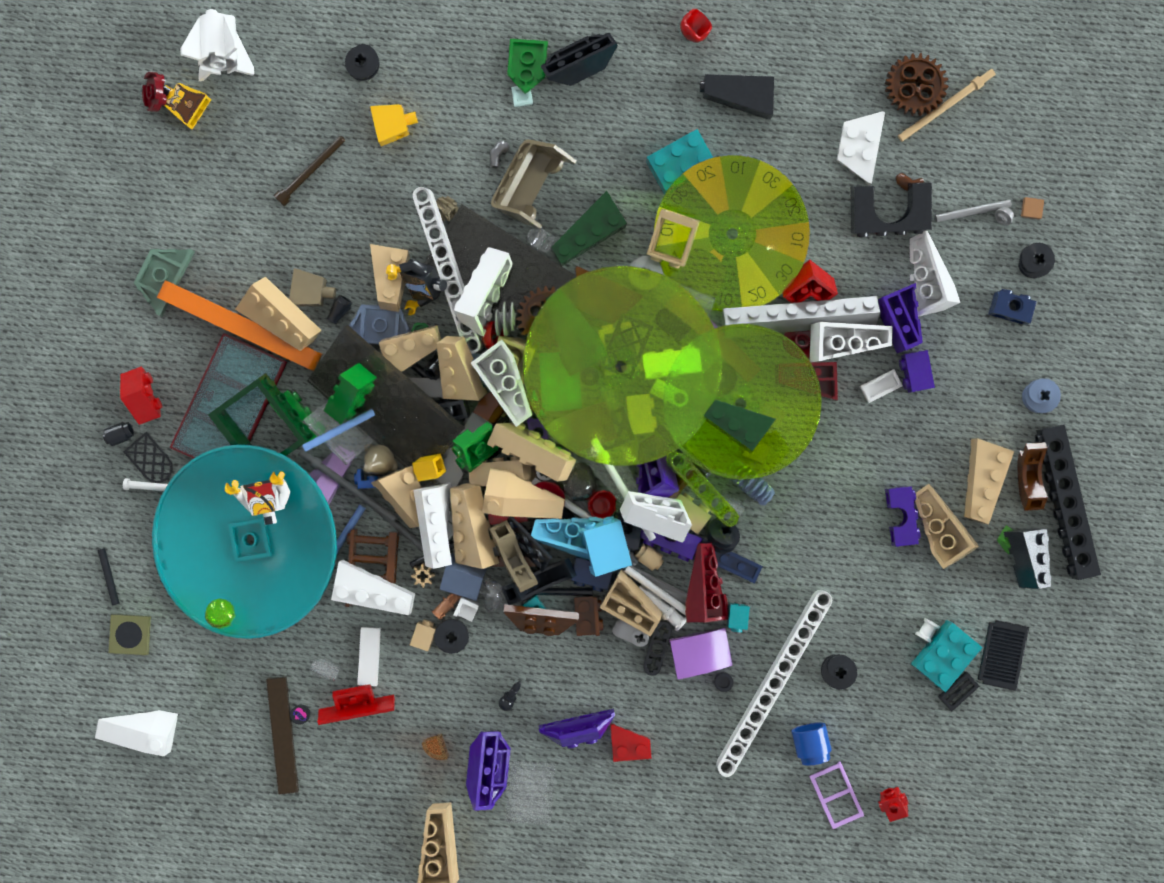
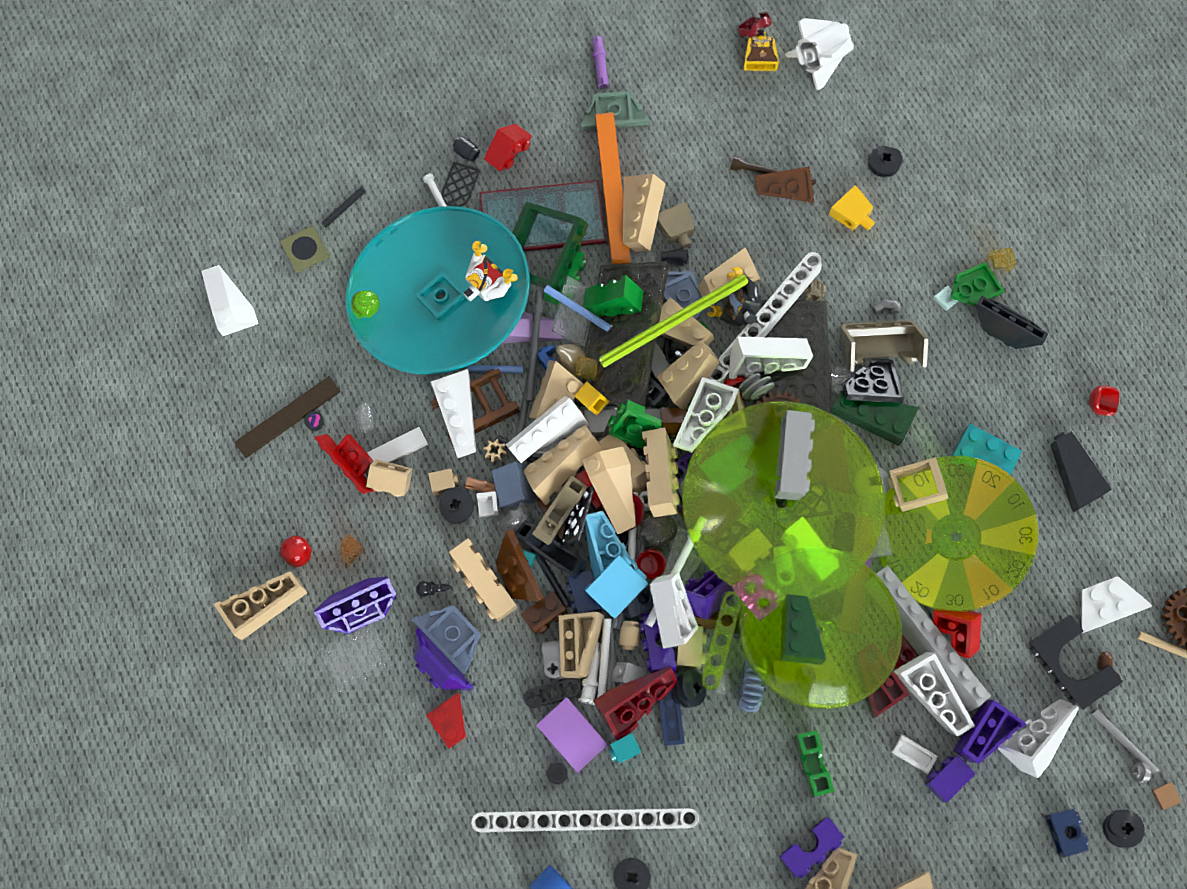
camera: 60 degrees right, 15 degrees down
(95, 253) = (599, 55): none -> medium lavender pin
(330, 165) = (787, 184): none -> reddish brown wing
(392, 679) = (389, 478): none -> tan brick
(397, 453) = (586, 367): none -> clear yellow tile
(404, 355) = (673, 320): none -> lime axle
(408, 793) = (295, 551): none -> red hair
(517, 22) = (1002, 258): none -> clear yellow panel
(530, 652) = (482, 580): none -> tan wedge
(559, 703) = (451, 634): none -> sand blue wing
(562, 213) = (875, 383): none -> black plate
(594, 337) = (793, 455): none -> light grey piece
(680, 578) = (626, 672): none -> light grey brick
(688, 446) = (752, 597): none -> brick
(841, 473) = (810, 754): none -> green arch

